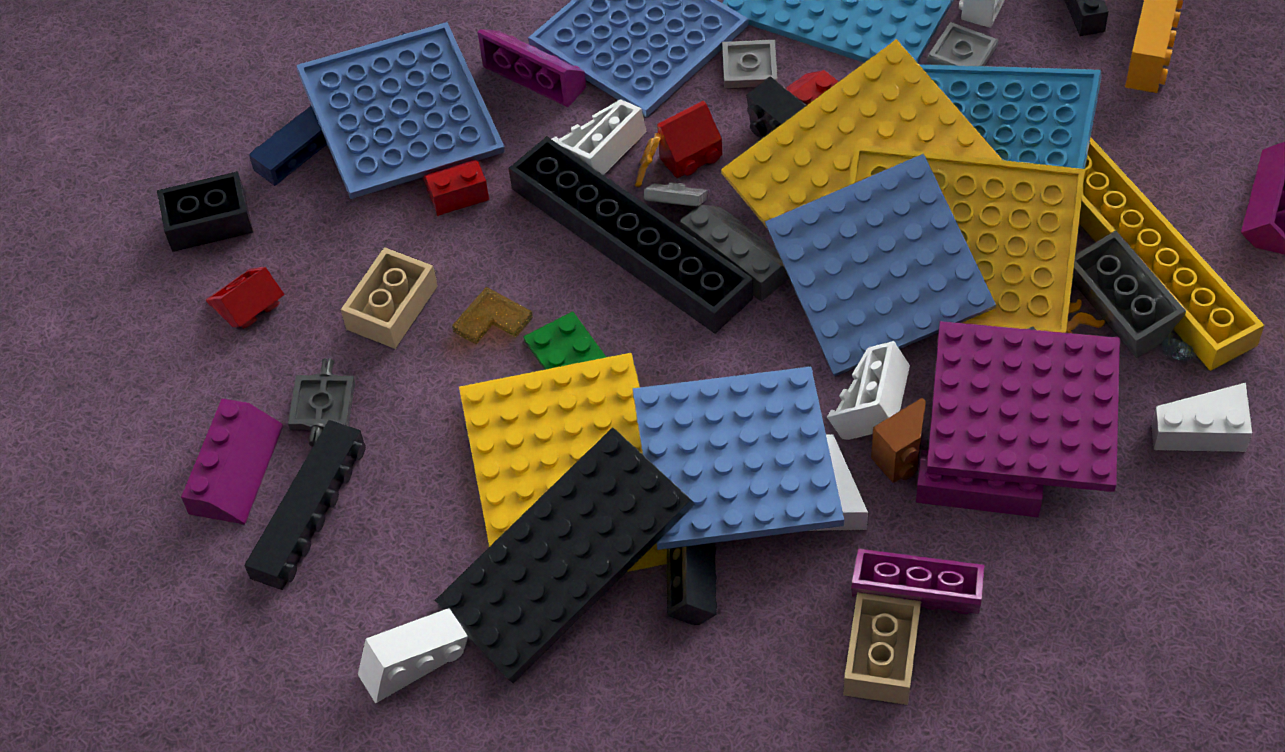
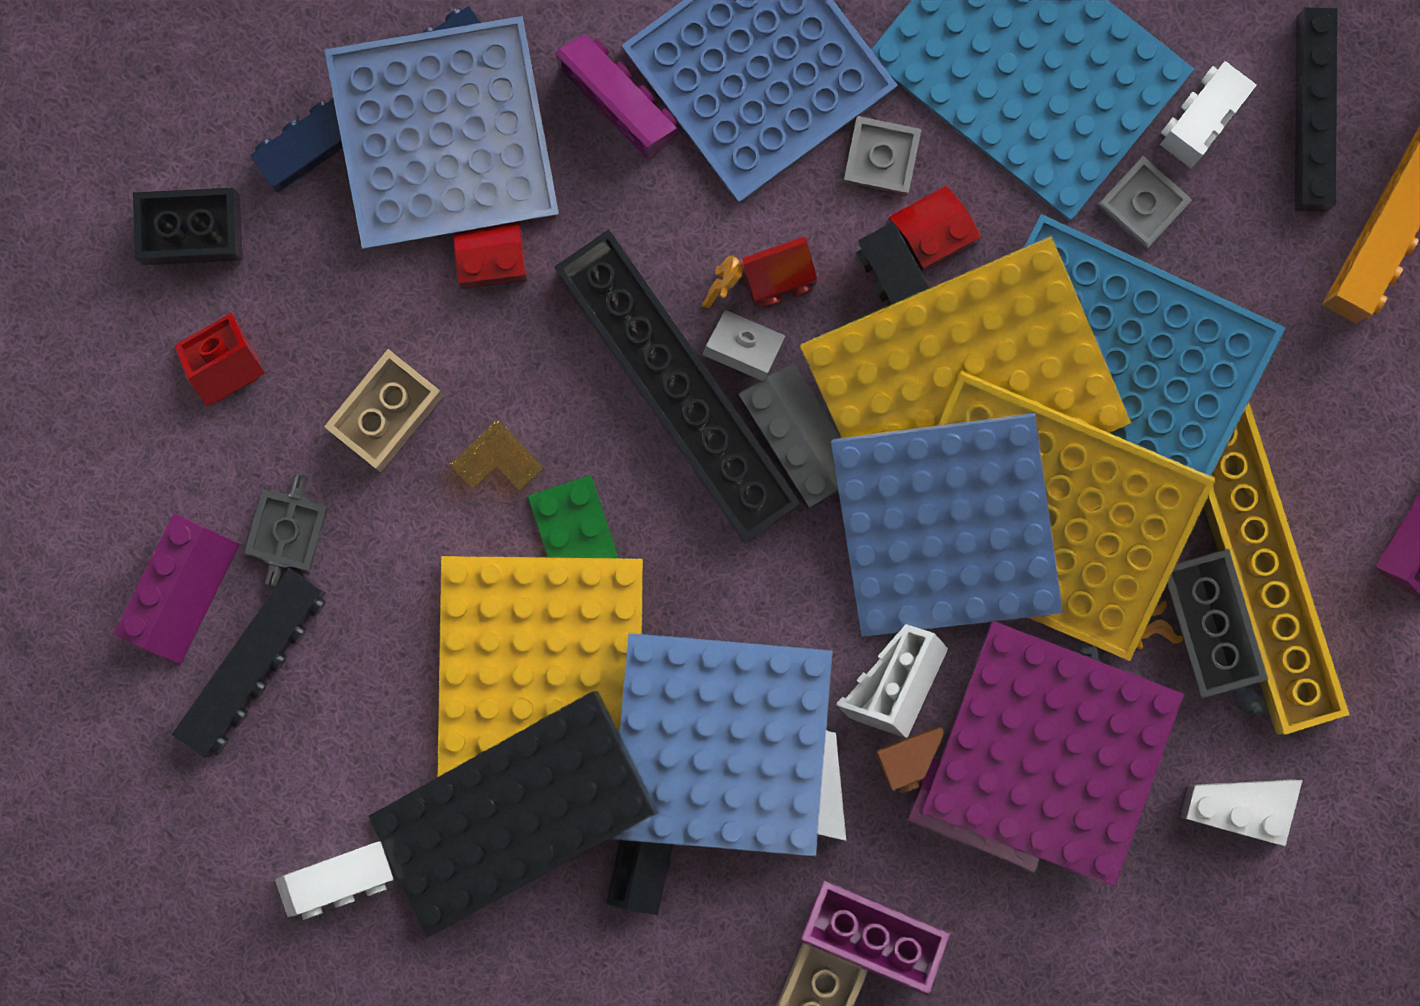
camera: 10 degrees right, 30 degrees up
(606, 136) = (674, 240): white wedge -> none

